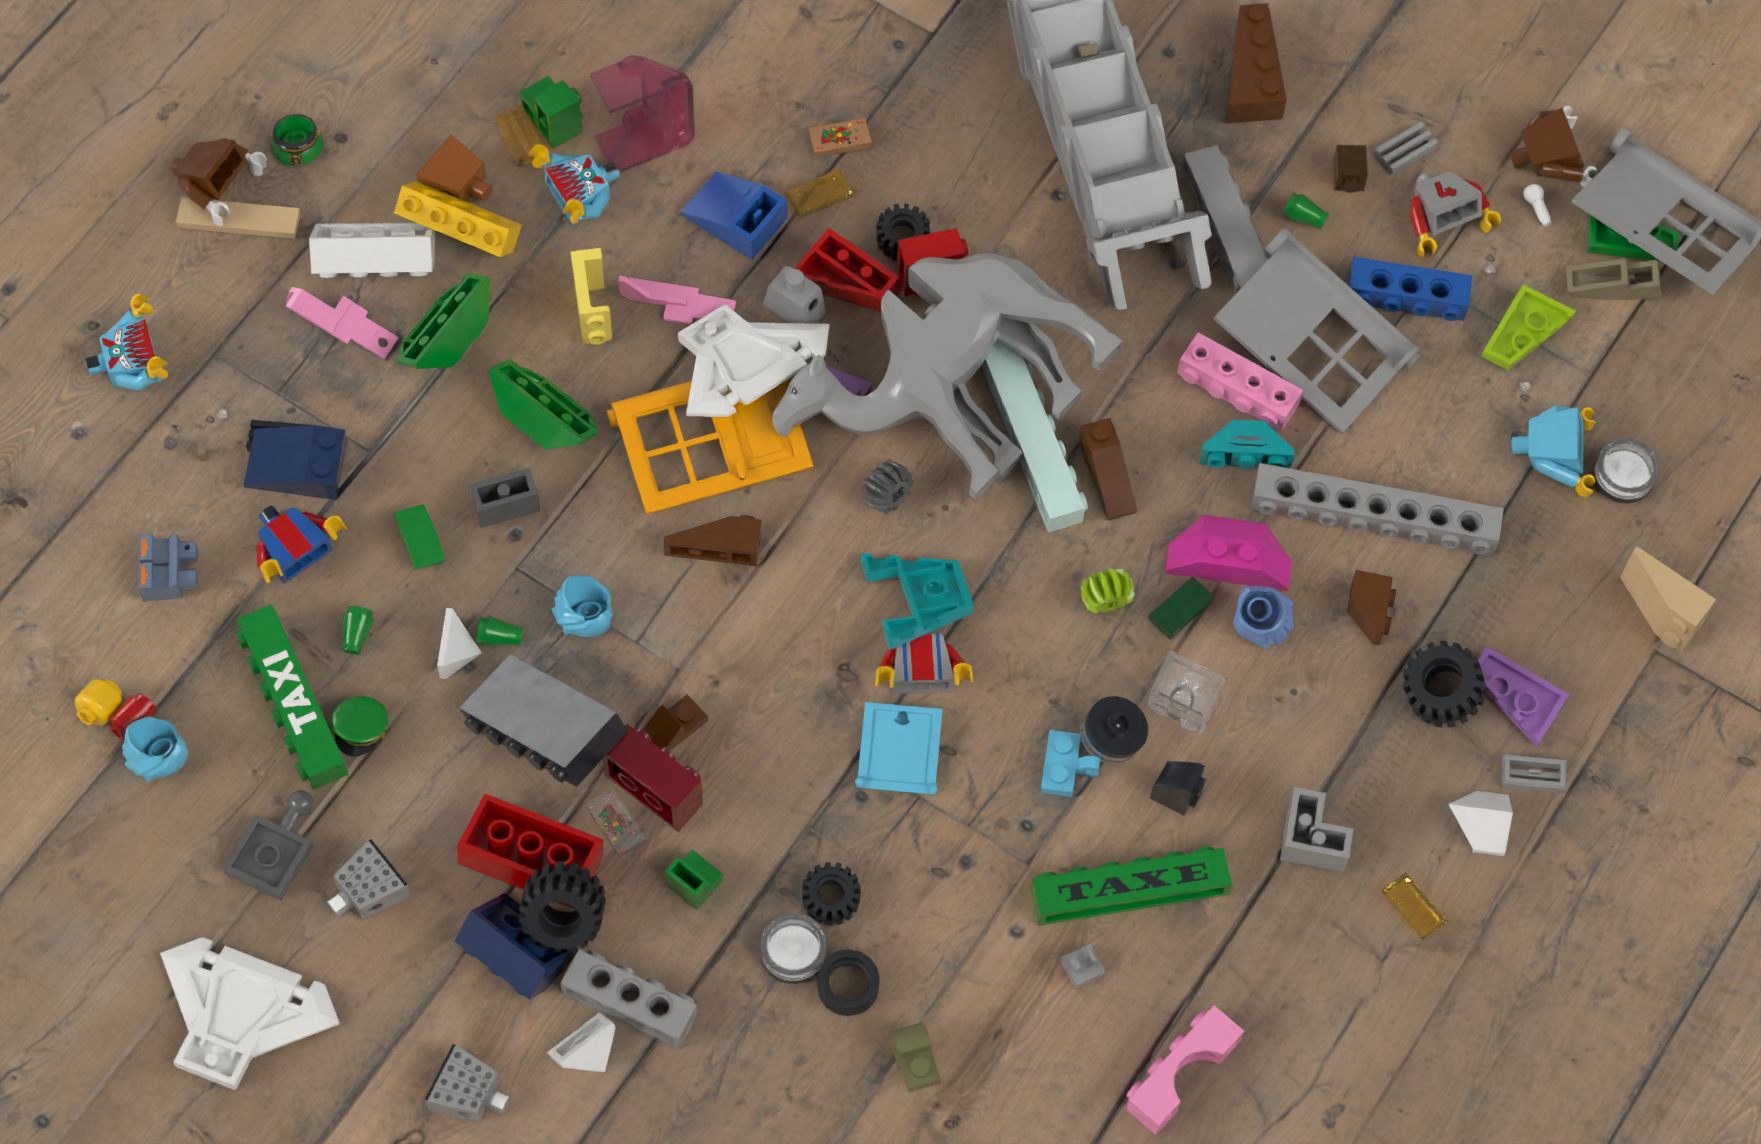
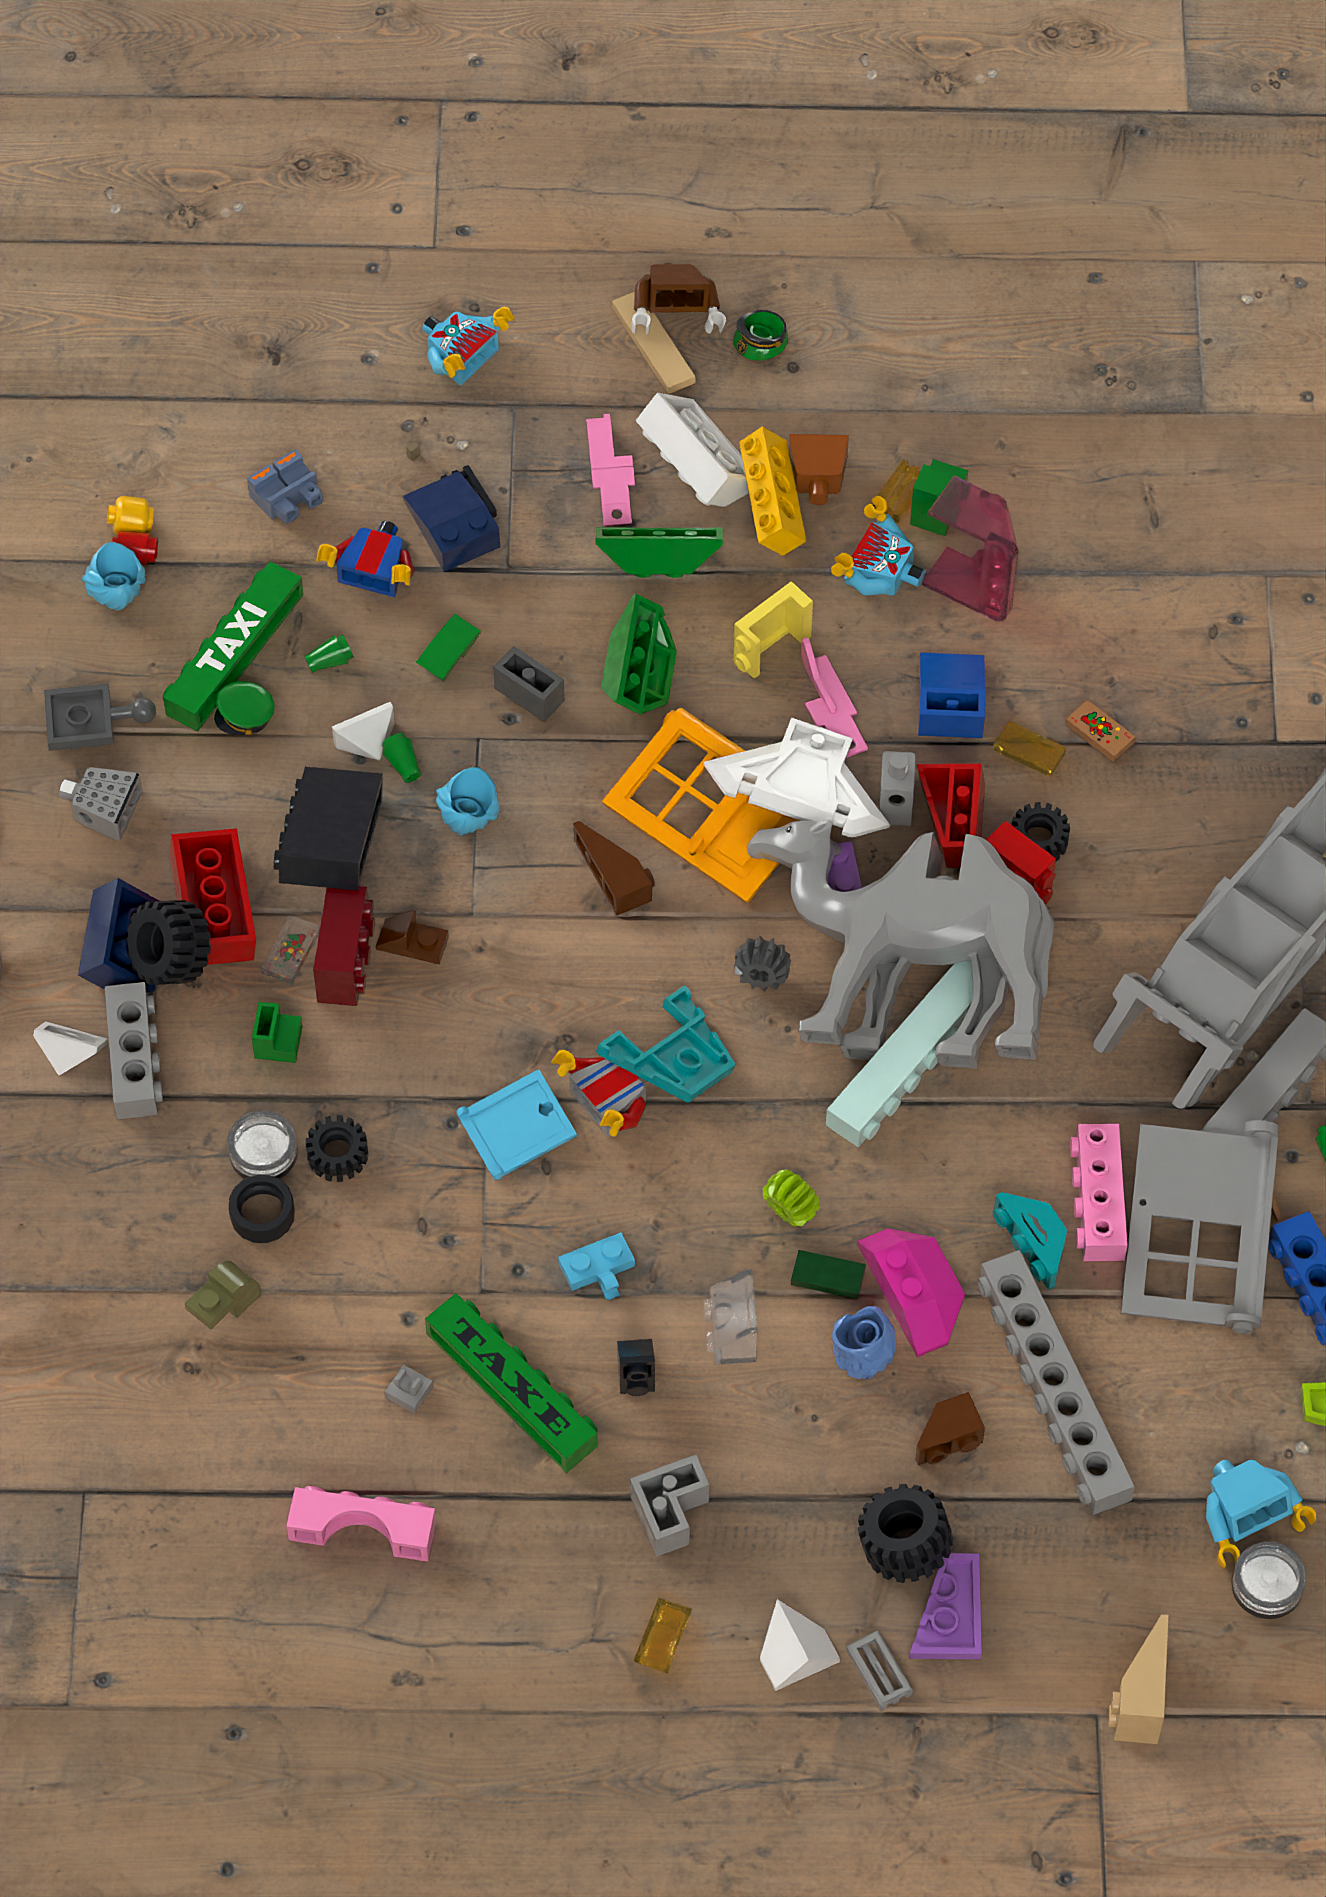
camera: 60 degrees right, 5 degrees down
(1107, 468) = (923, 1132): reddish brown slope -> none
(1114, 730) = (656, 1282): black piece -> none

